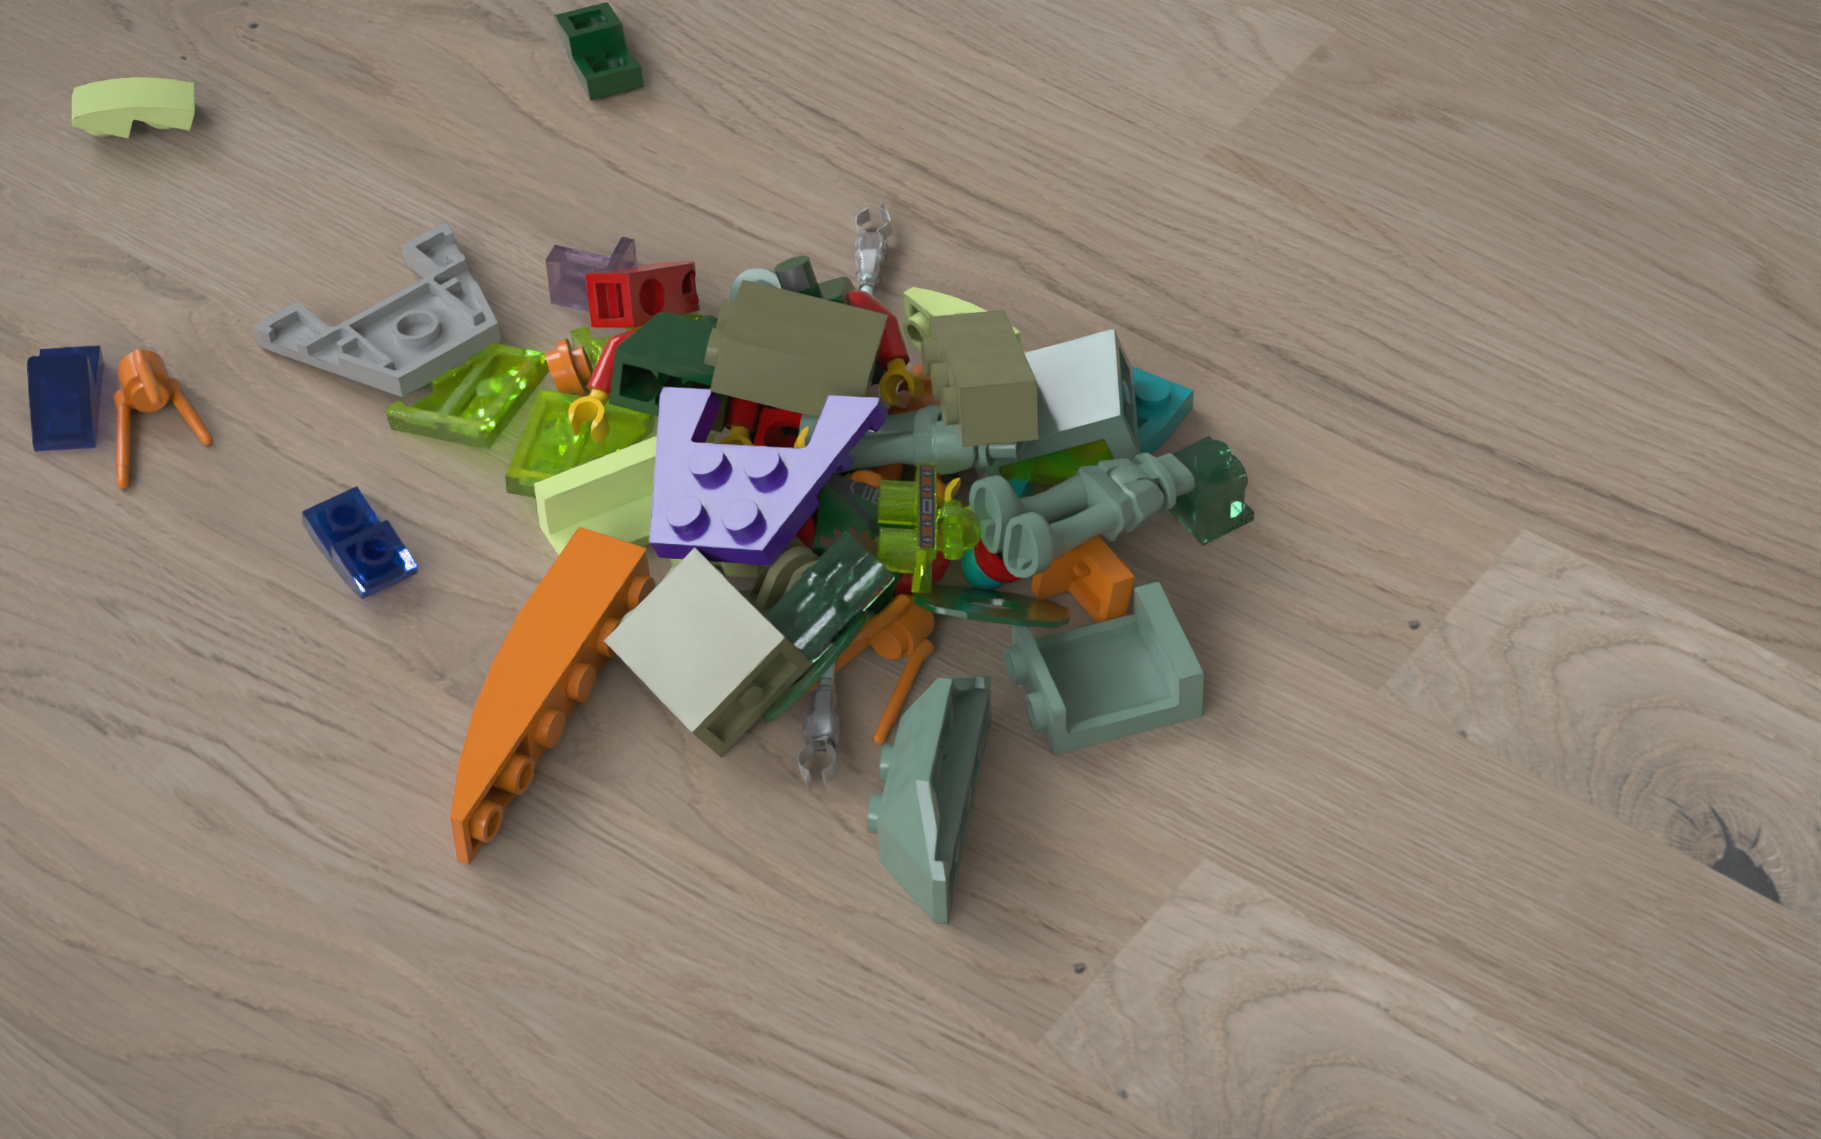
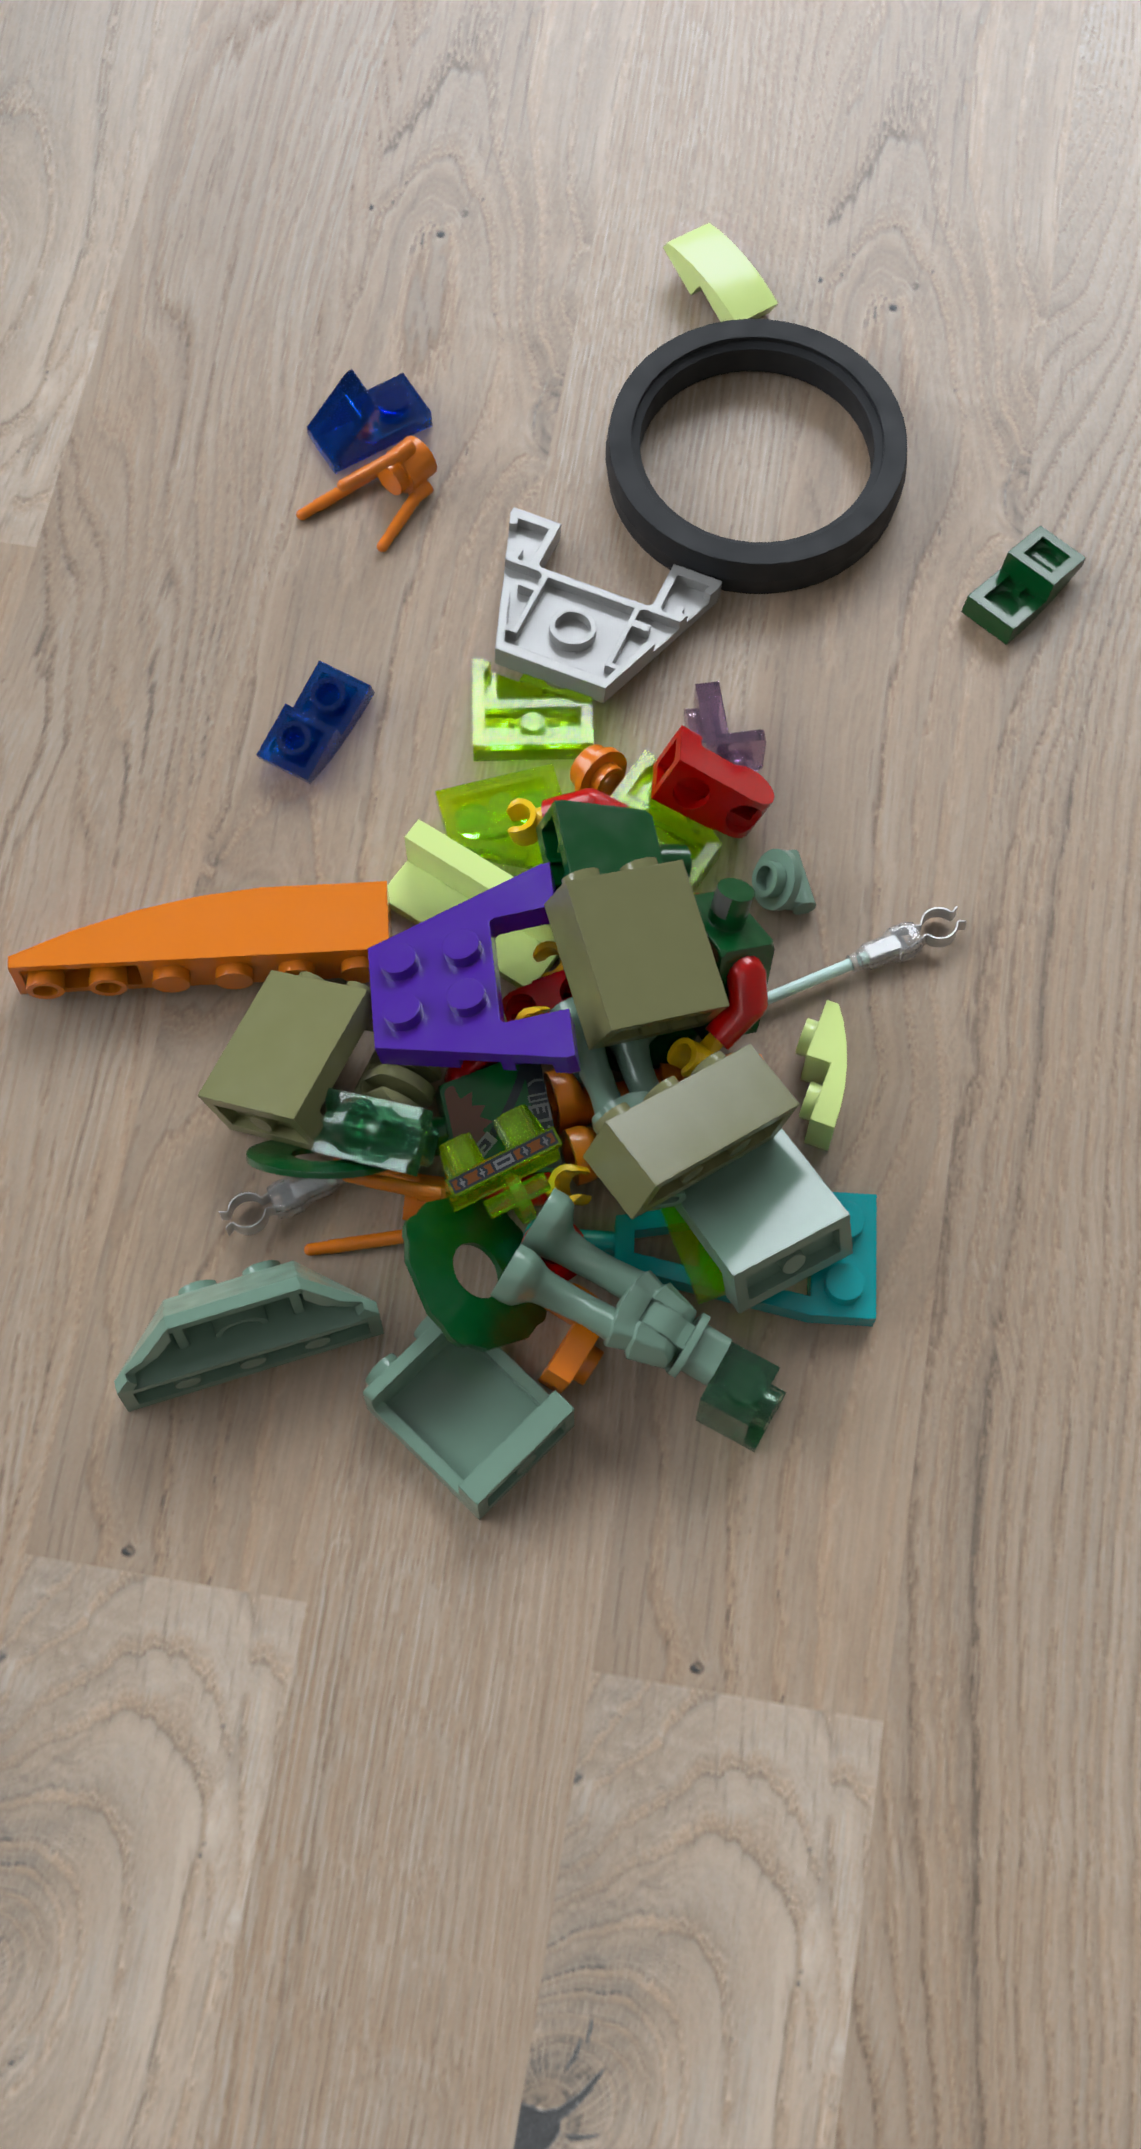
camera: 60 degrees right, 20 degrees up
(317, 68) = (769, 348): none -> black tyre

